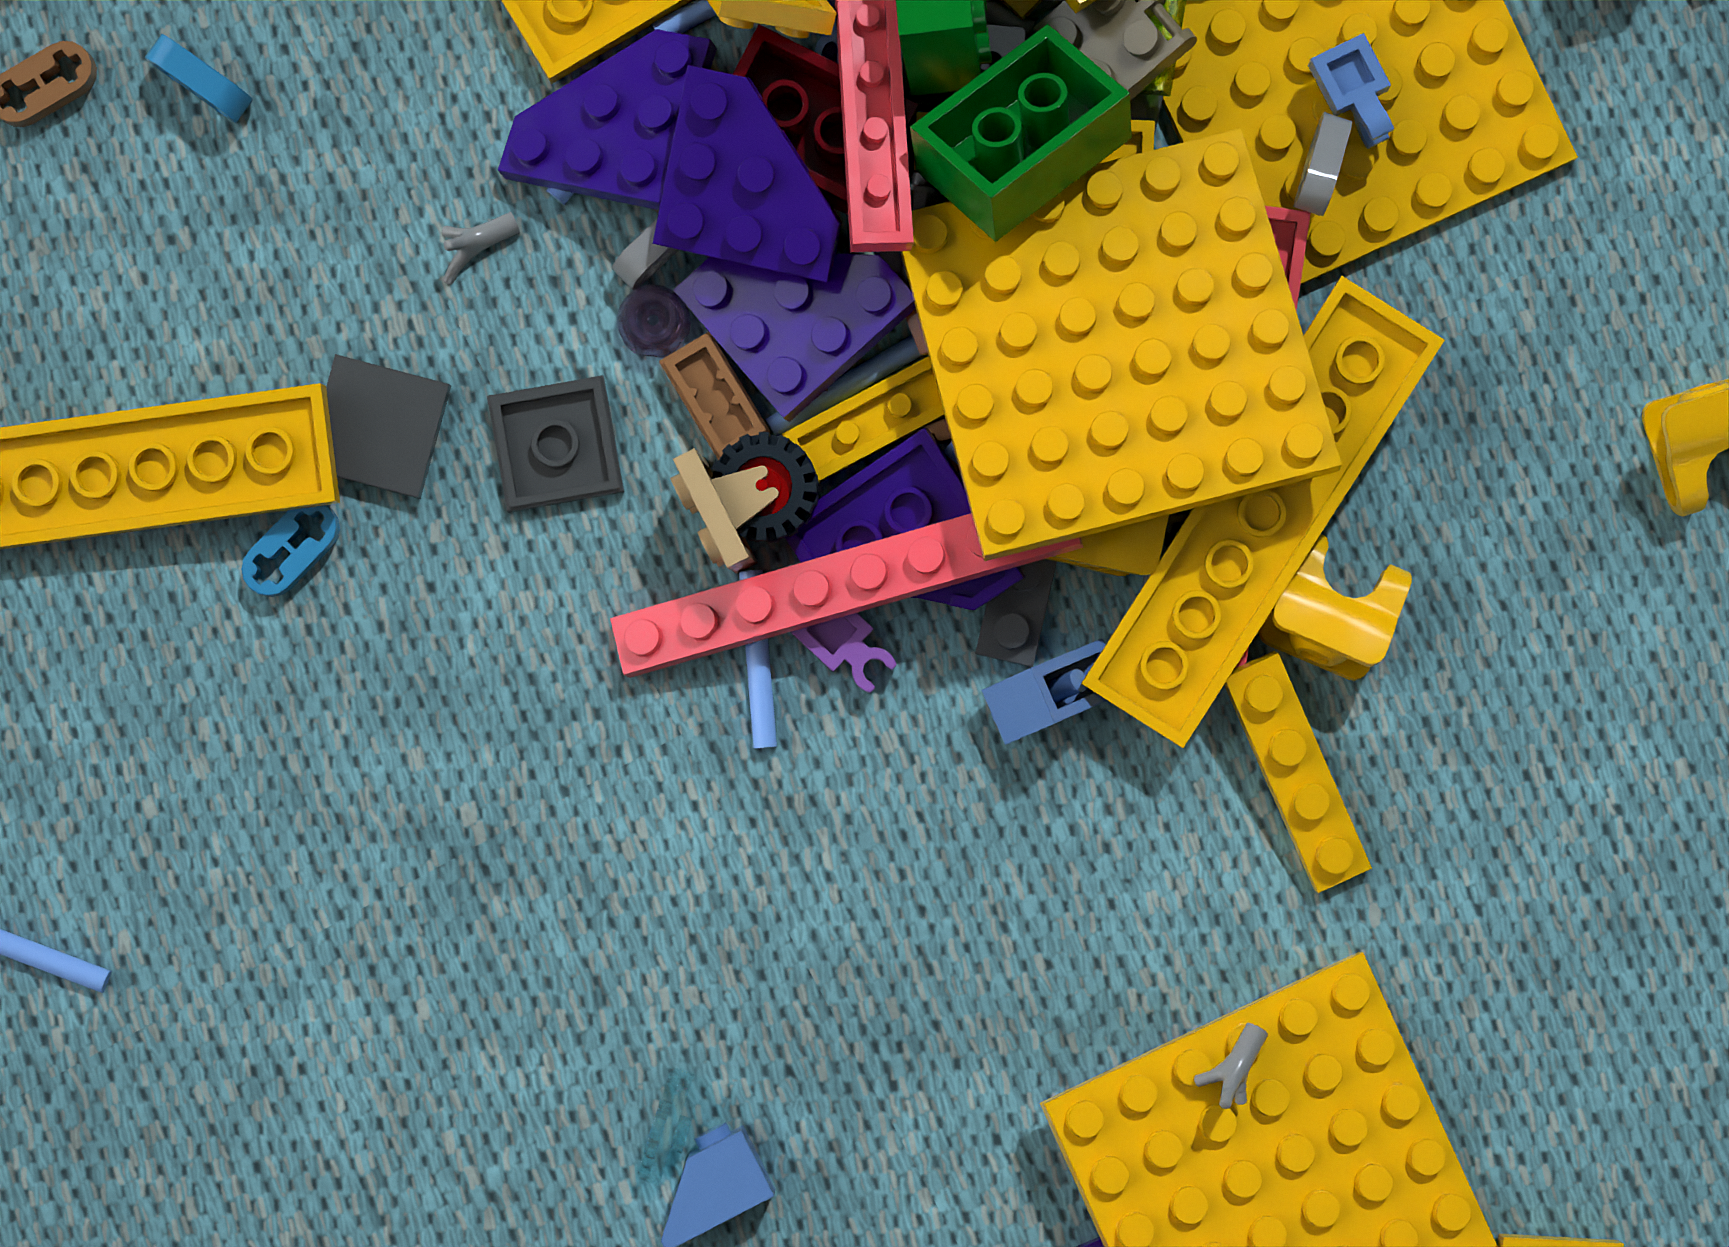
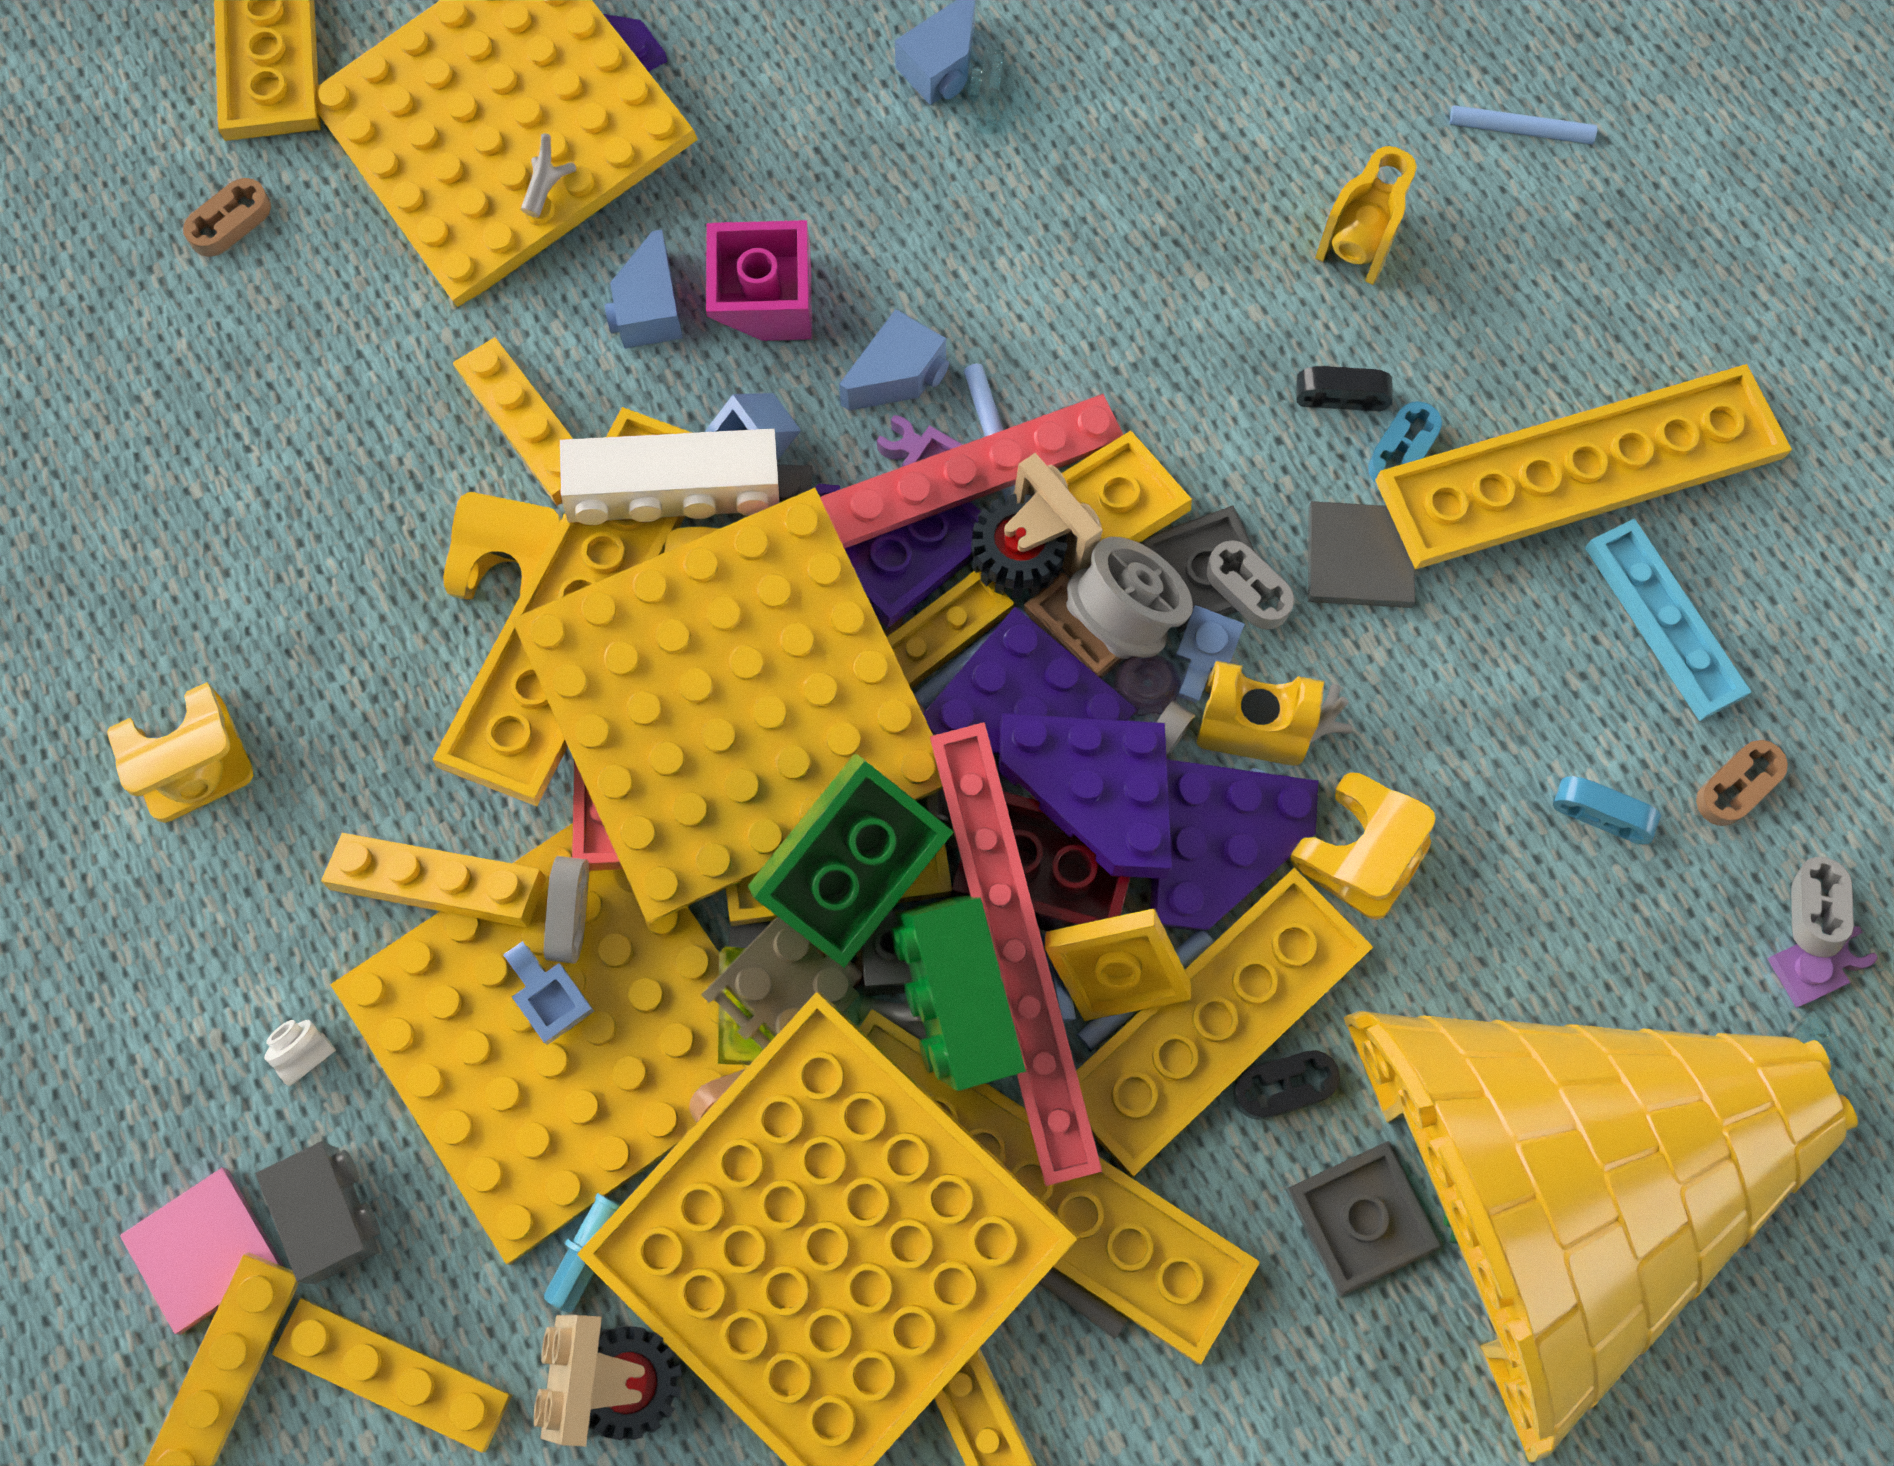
camera: 170 degrees right, 15 degrees down
(62, 280) = (1667, 620): none -> medium azure plate
(261, 820) = (1369, 213): none -> yellow piece
(342, 627) = (1344, 388): none -> black beam
(450, 68) = (1383, 859): none -> yellow piece
(527, 395) = (1254, 580): none -> light grey beam
(539, 251) = (1258, 716): none -> yellow piece
(578, 345) = (1205, 640): none -> medium blue plate
(634, 543) = (1127, 489): none -> yellow plate
(654, 401) = (1129, 598): none -> light grey wheel
(853, 758) = (895, 365): none -> medium blue slope
(997, 893) = (760, 278): none -> dark pink slope
(1133, 907) = (644, 297): none -> medium blue slope
(1142, 628) = (668, 475): none -> white brick
(1458, 241) = (434, 879): none -> yellow plate
(1618, 99) = (296, 1050): none -> white plate
(1629, 1137) = (227, 217): none -> medium nougat beam

